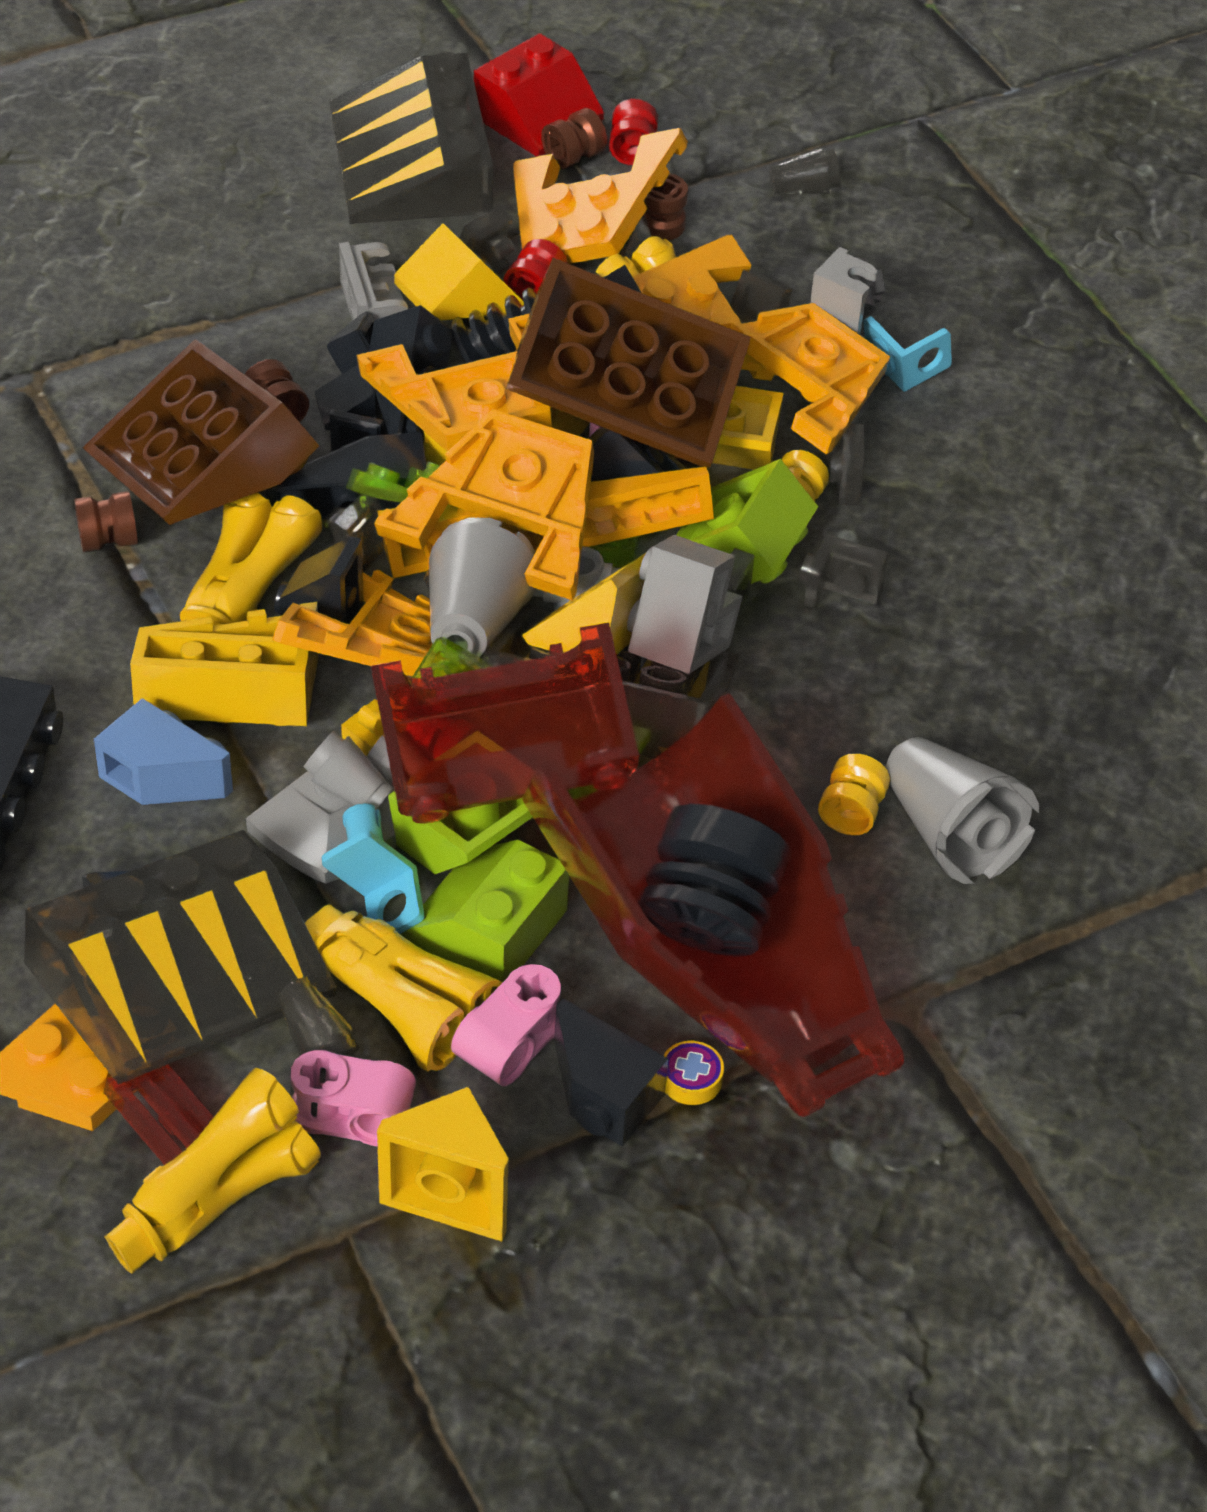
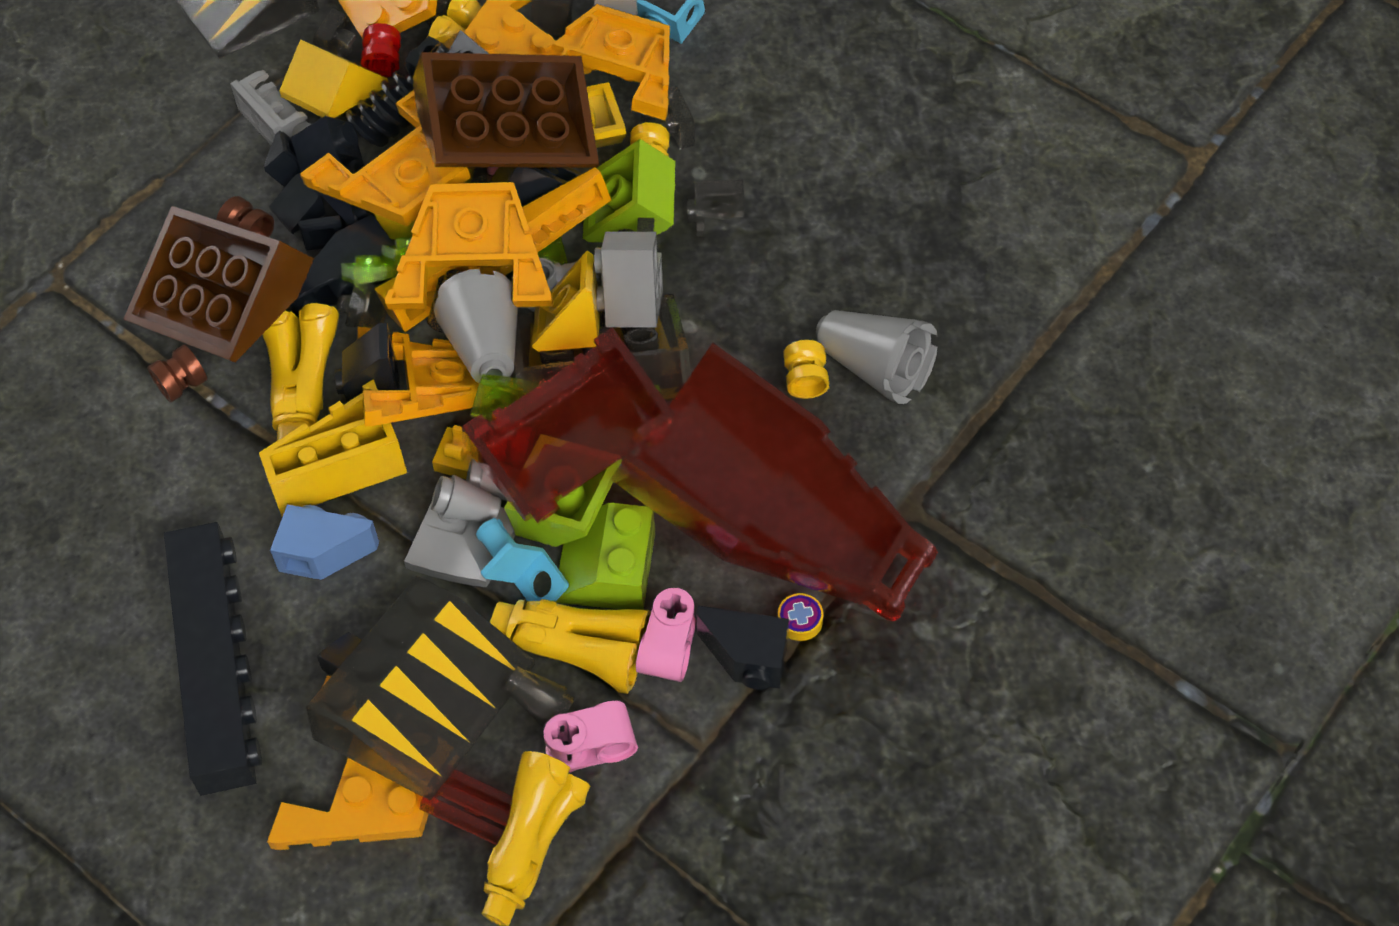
camera: 20 degrees left, 10 degrees up
(445, 1165) = (687, 760): yellow slope -> none
(714, 879) = (759, 474): black wheel -> none

